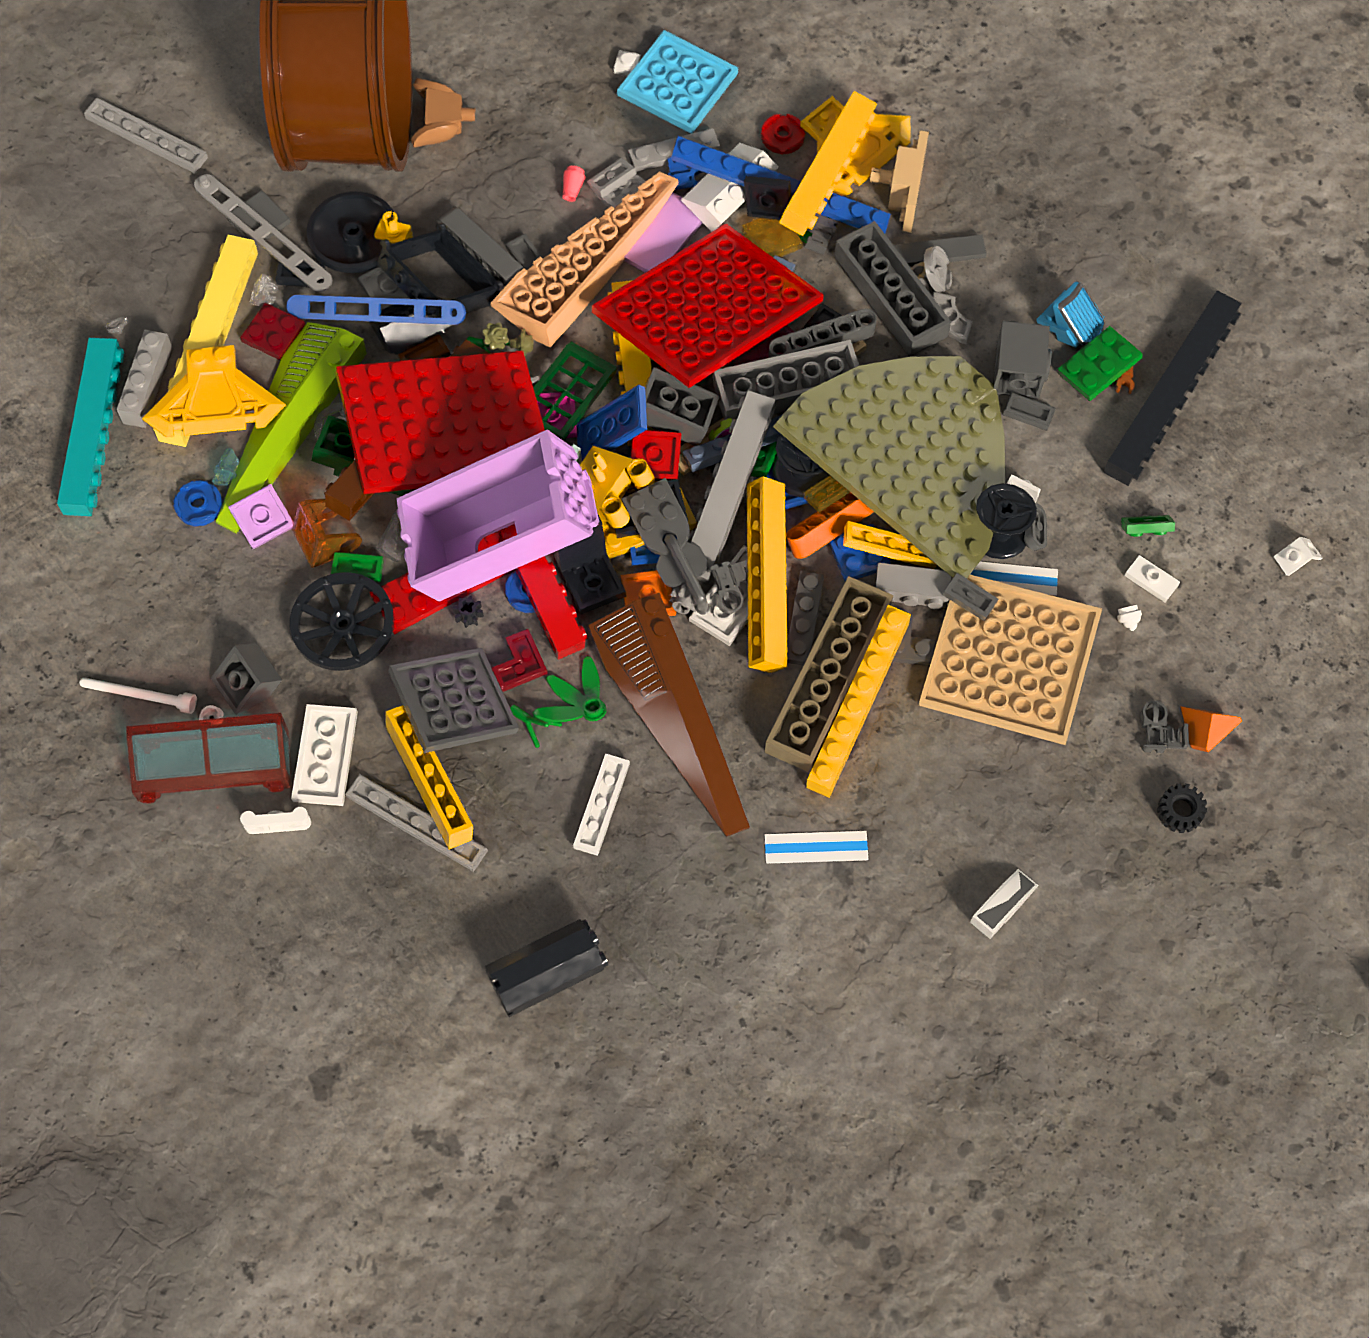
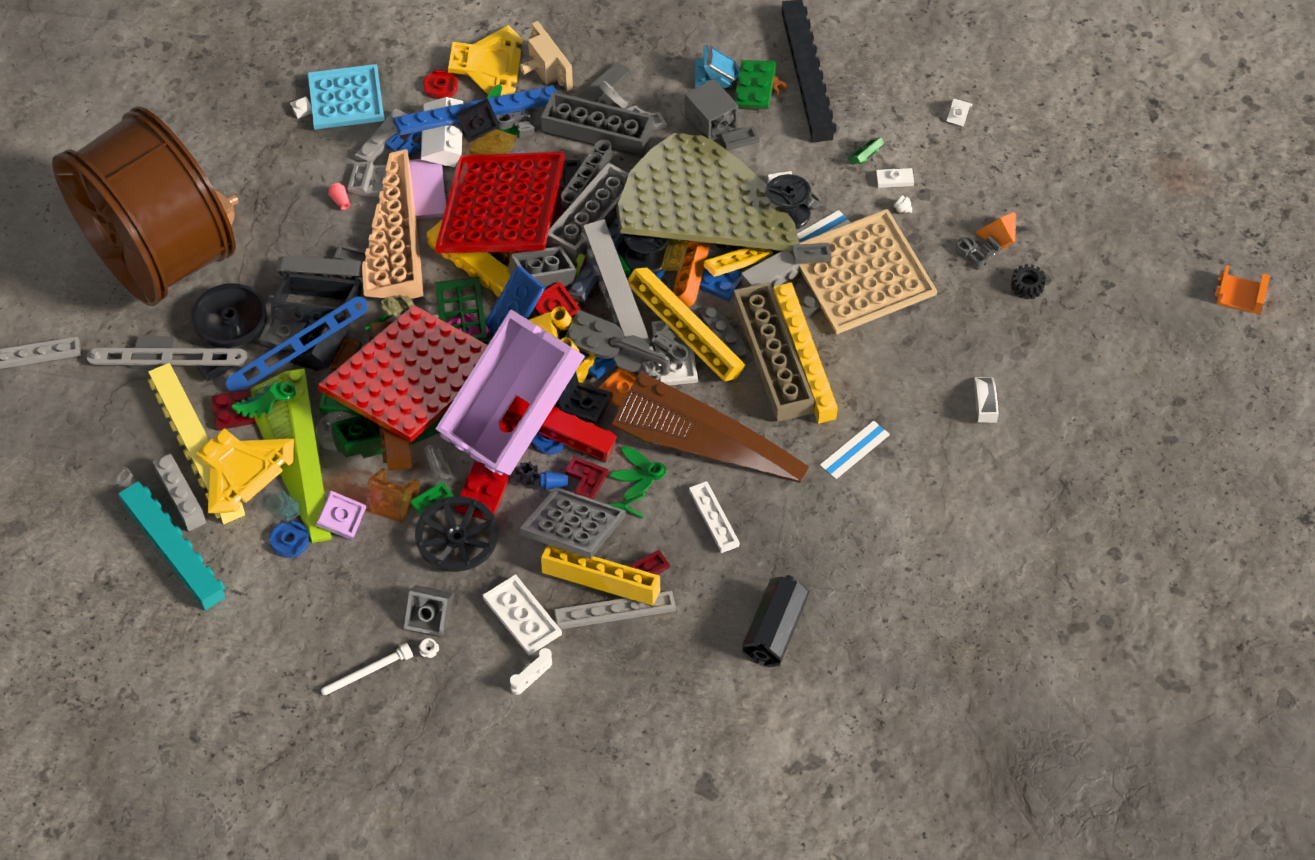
camera: 40 degrees left, 10 degrees down
(208, 755) = (453, 665): windscreen -> none
(261, 291) = (202, 390): clear tile -> none
(294, 344) = (265, 400): none -> green plant
(391, 229) = (256, 295): yellow bracket -> none
(485, 637) = (550, 480): none -> blue cone
(487, 804) = (653, 563): none -> dark red plate
(828, 164) = (495, 77): yellow brick -> none

